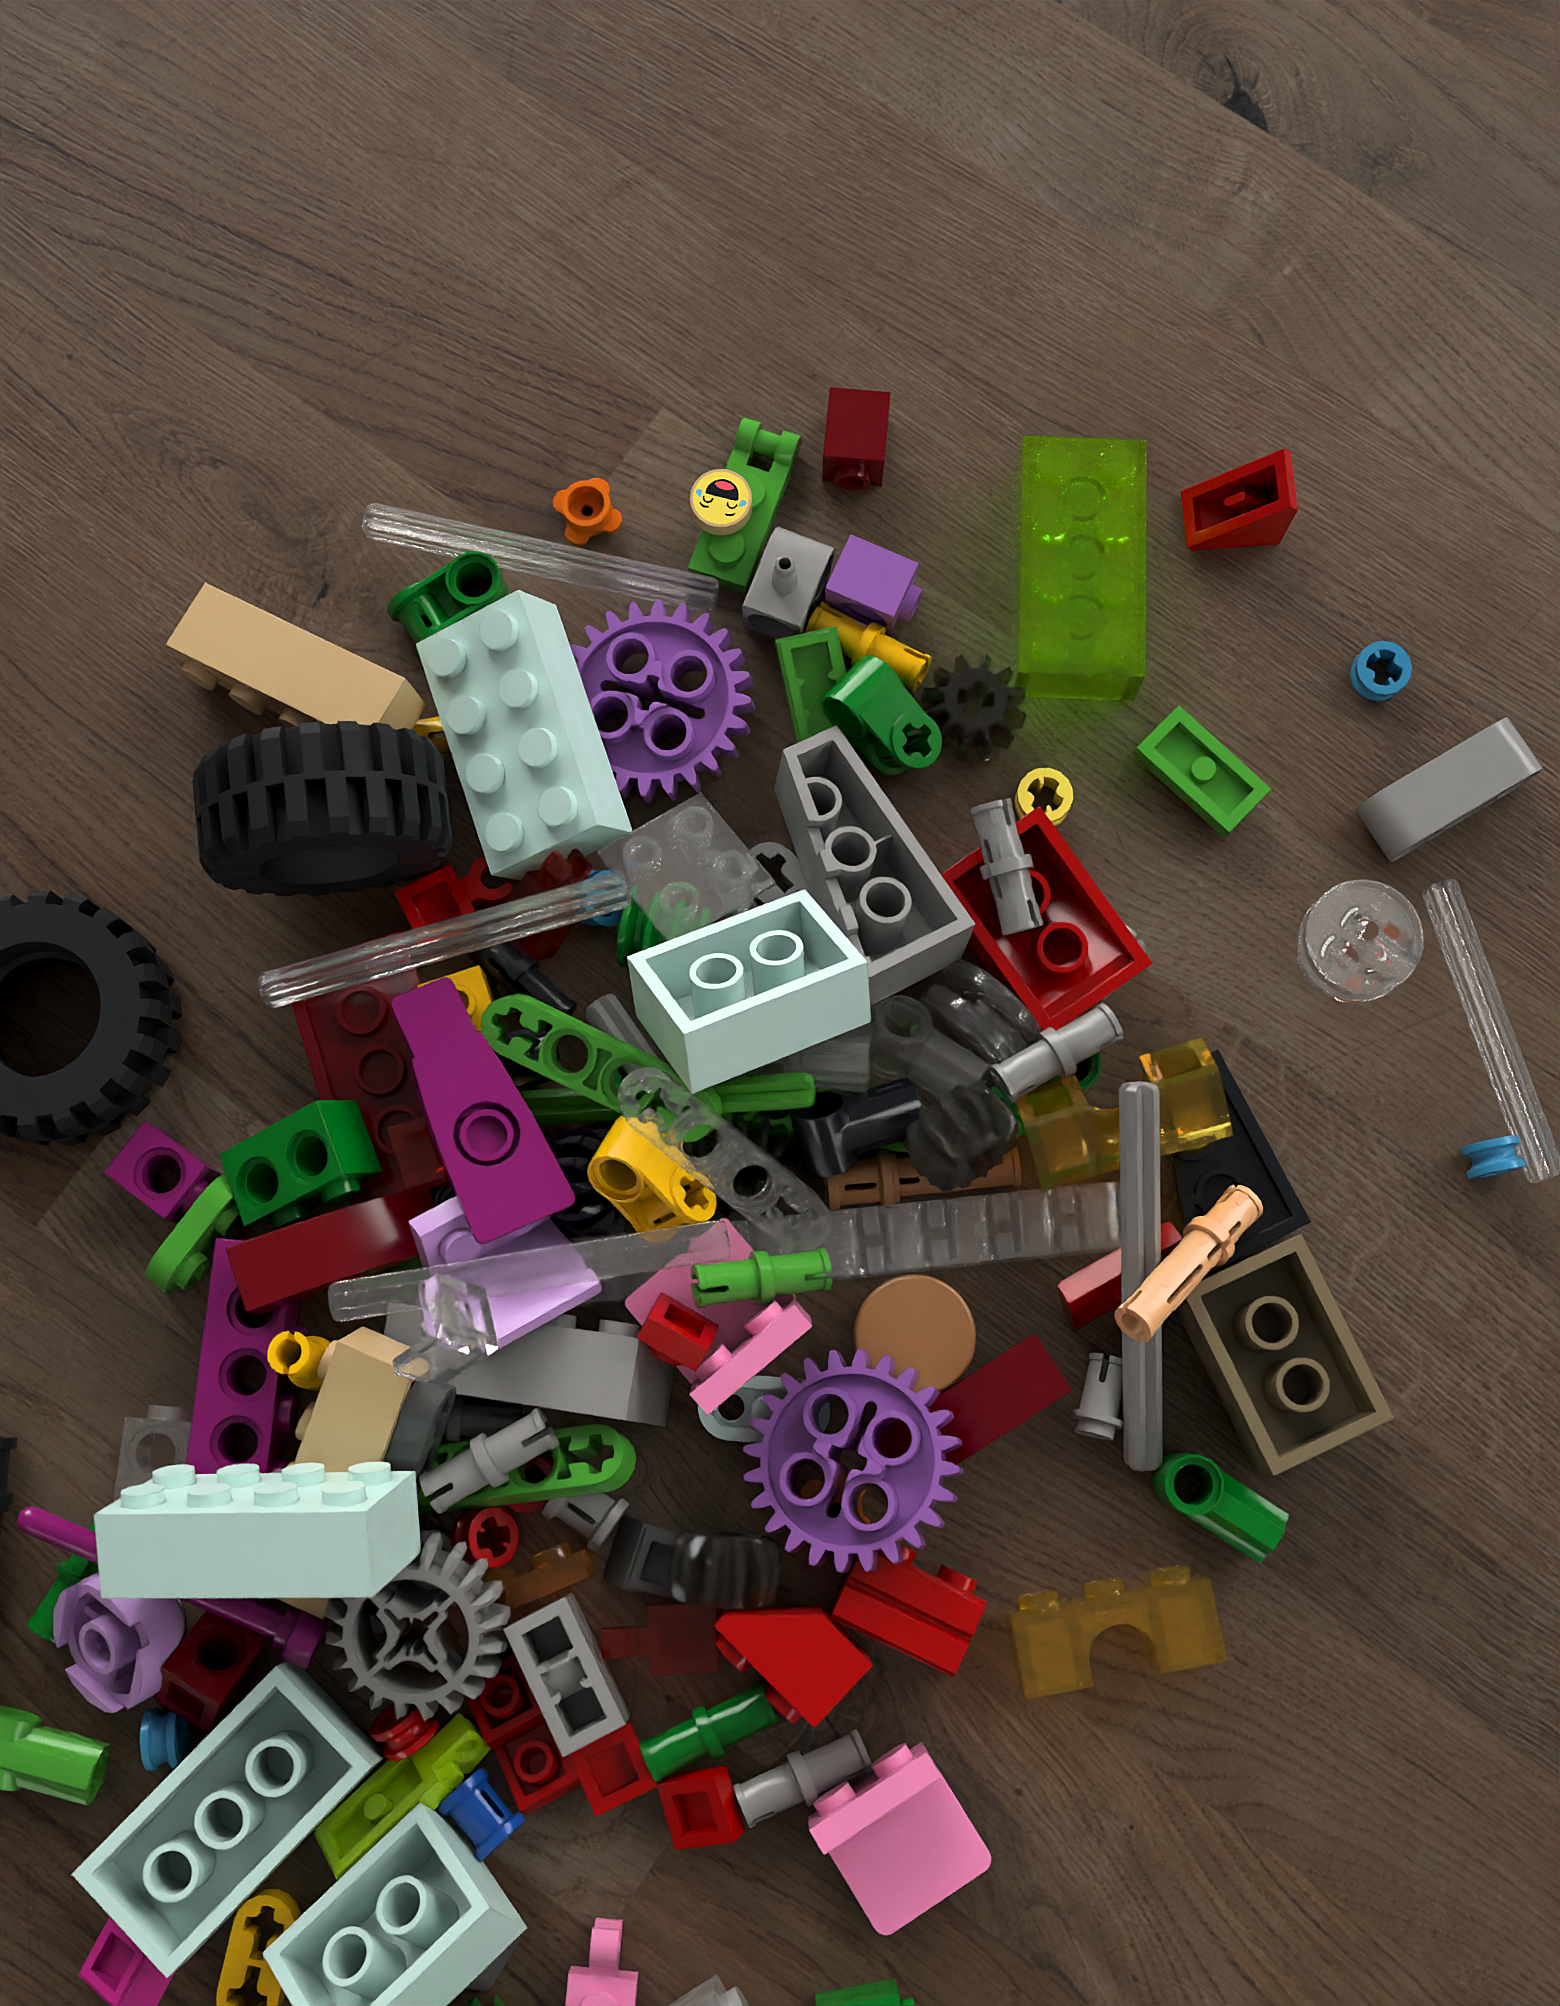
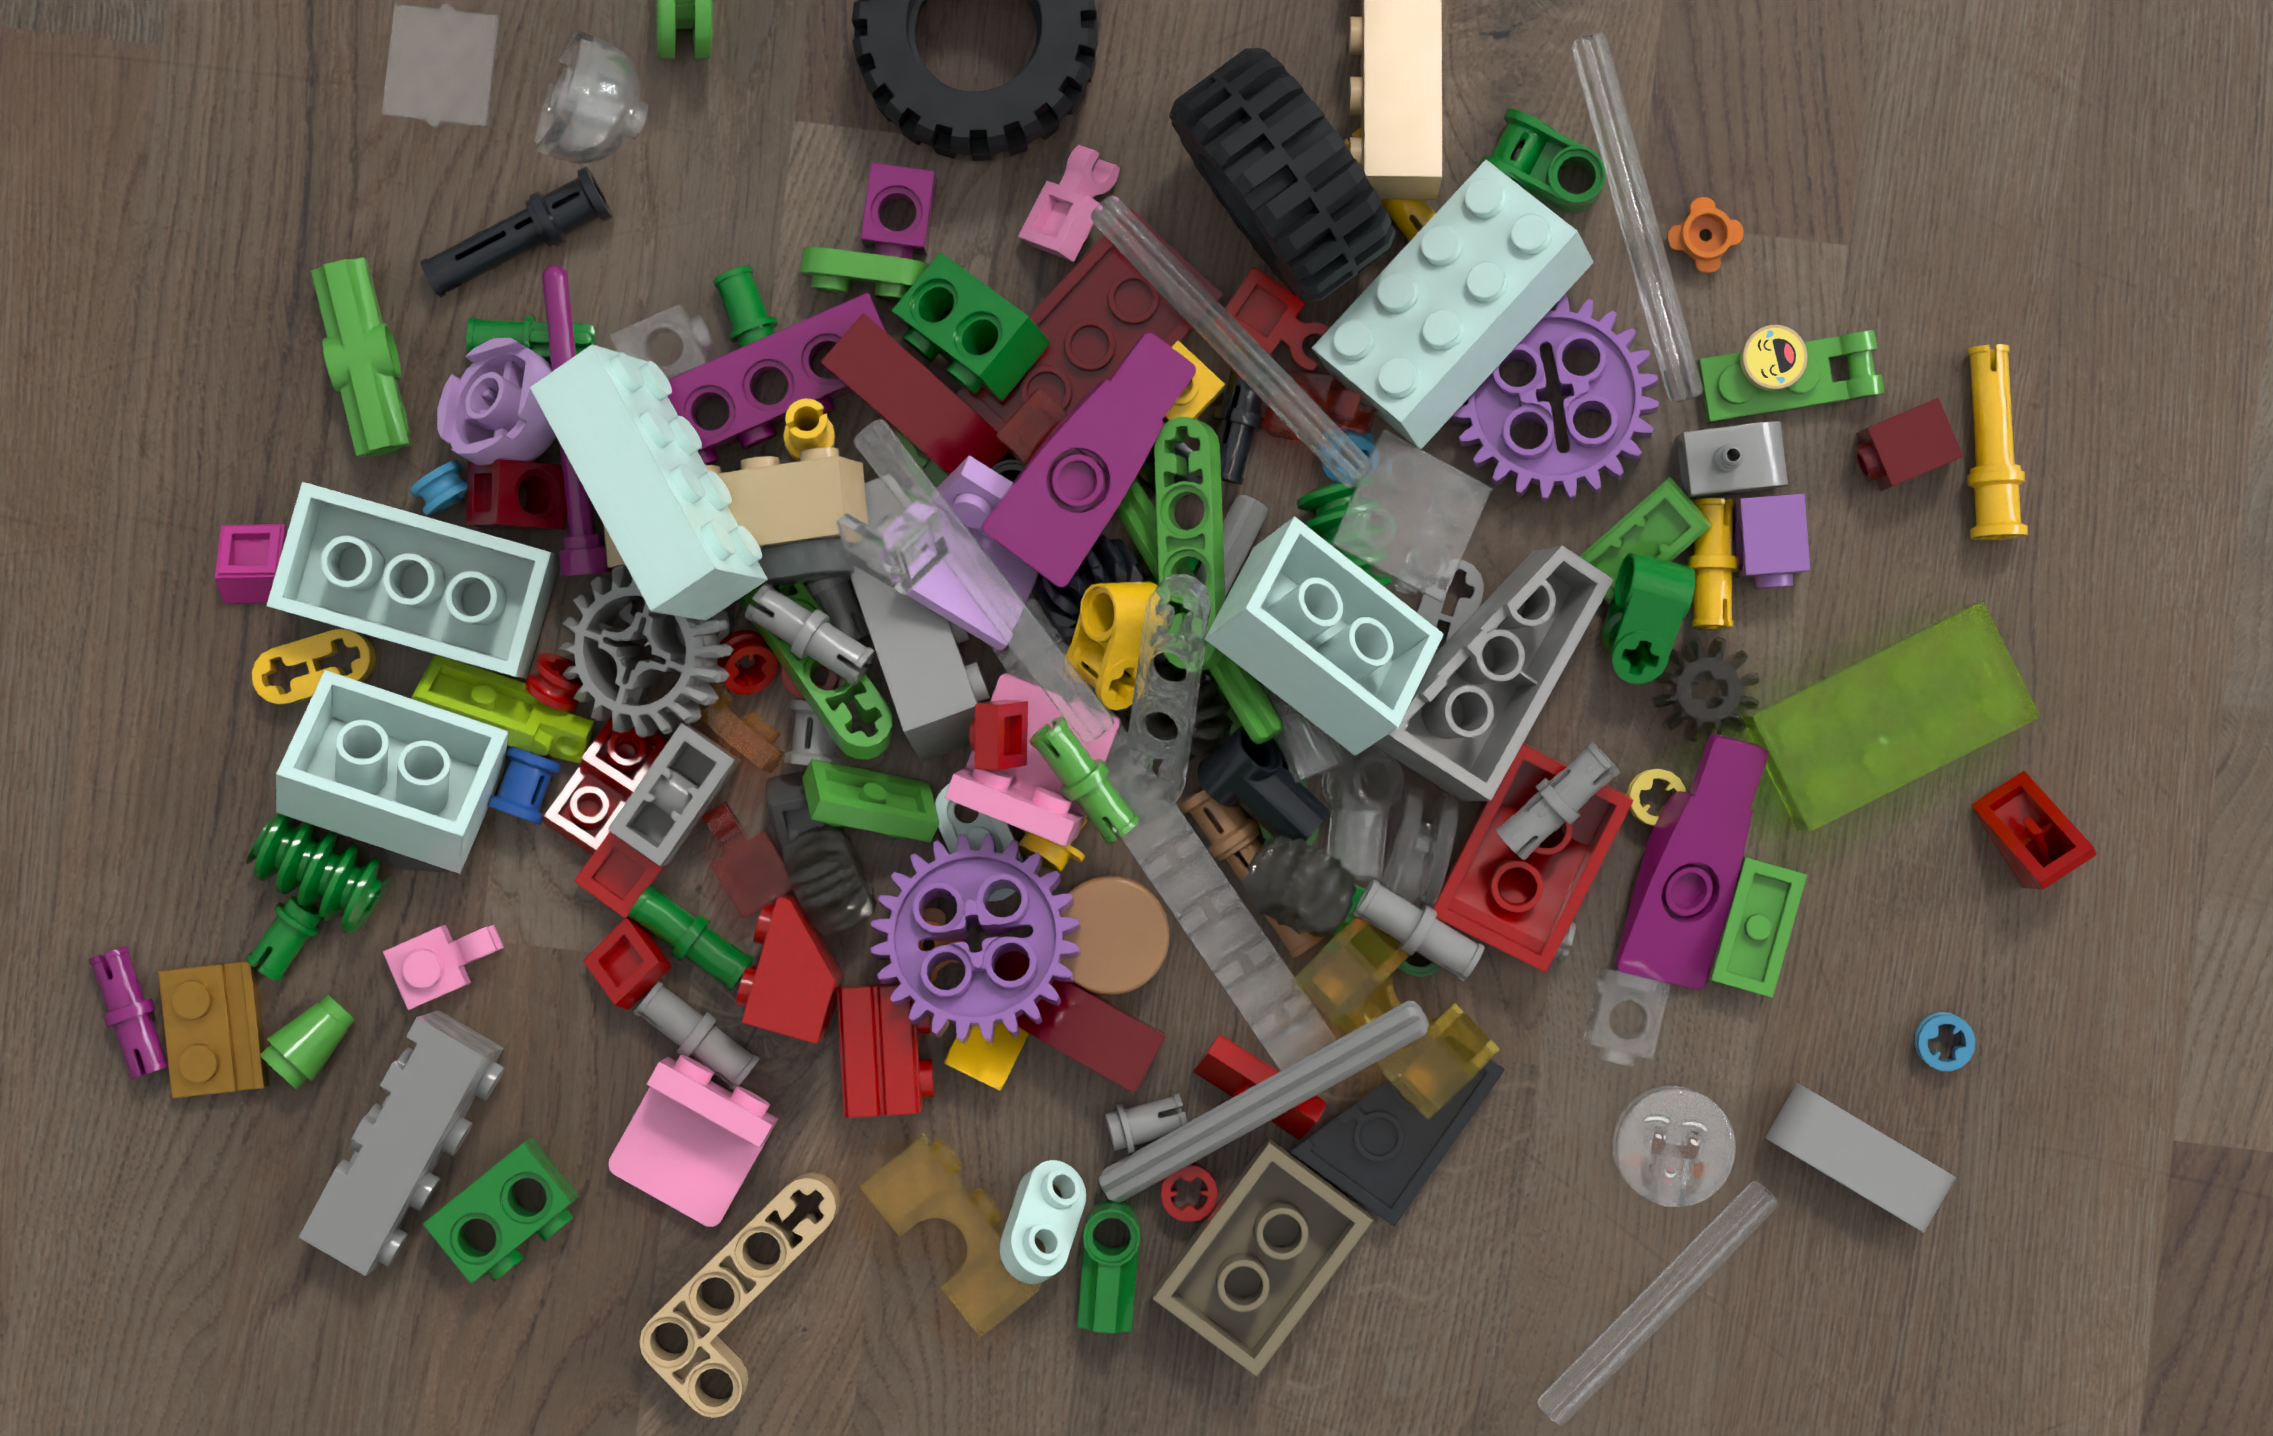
camera: 60 degrees right, 10 degrees up
(163, 1360) = (744, 306): none -> green pin
(251, 1029) = (1063, 211): none -> bright pink plate
(673, 1490) = (870, 801): none -> bright green plate
(809, 1345) = (1053, 854): none -> yellow plate
(919, 382) = (1995, 475): none -> yellow pin
(969, 1515) = (987, 1061): none -> yellow slope
(1058, 1857) = (748, 1280): none -> tan beam
(1122, 797) = (1692, 868): none -> magenta piece
(1142, 1537) = (1045, 1216): none -> light aqua plate
(1201, 1403) = (1189, 1211): none -> red bush
(1205, 1244) = (1319, 1143): light nougat pin -> none
(1223, 893) = (1613, 989): none -> clear brick
(1493, 1157) = (1539, 1358): dark azure bush -> none

